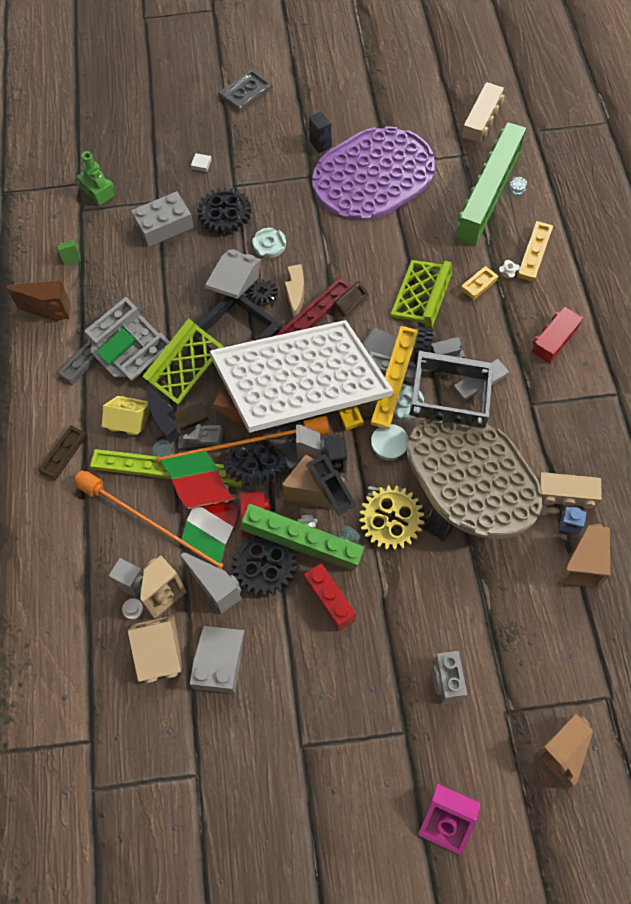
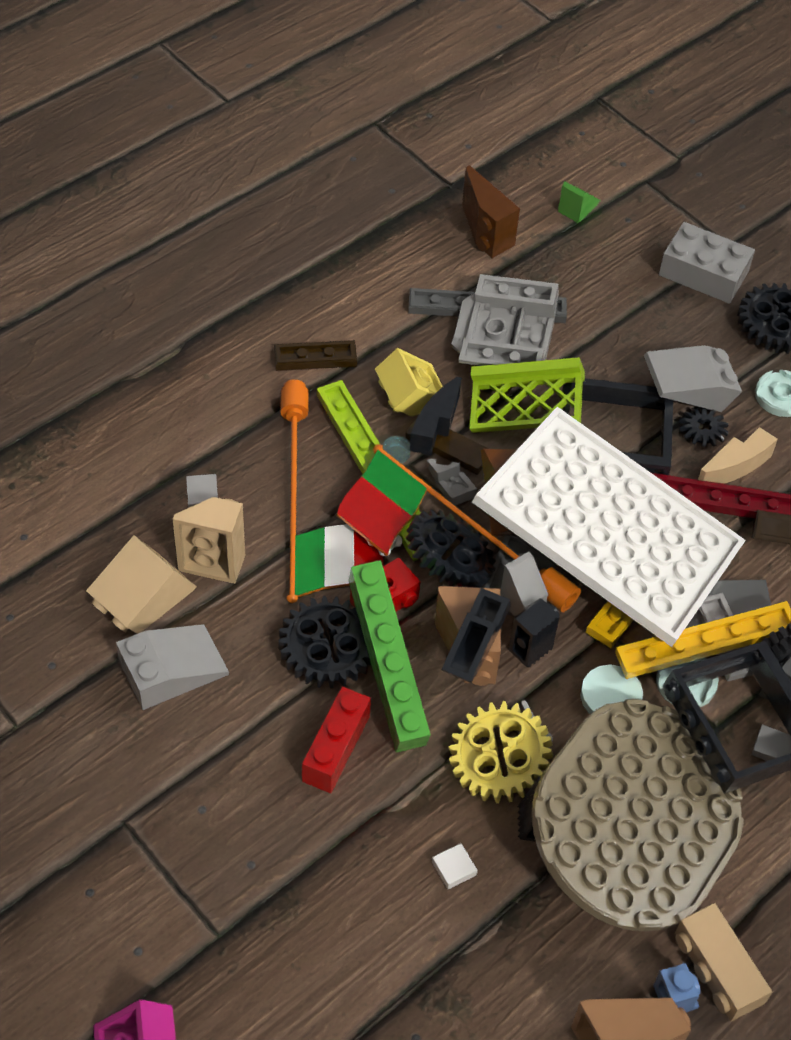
camera: 50 degrees right, 10 degrees down
(93, 180) = (693, 165): bright green brick -> none
(116, 346) = (488, 318): green tile -> none
(132, 608) = (167, 539): white plate -> none
(215, 582) = (256, 601): light grey slope -> none
(308, 520) = (421, 657): white plate -> none
(349, 534) = (439, 715): clear light blue tile -> none
(439, 583) = (454, 866): none -> white tile
(449, 677) = (325, 942): light grey brick -> none

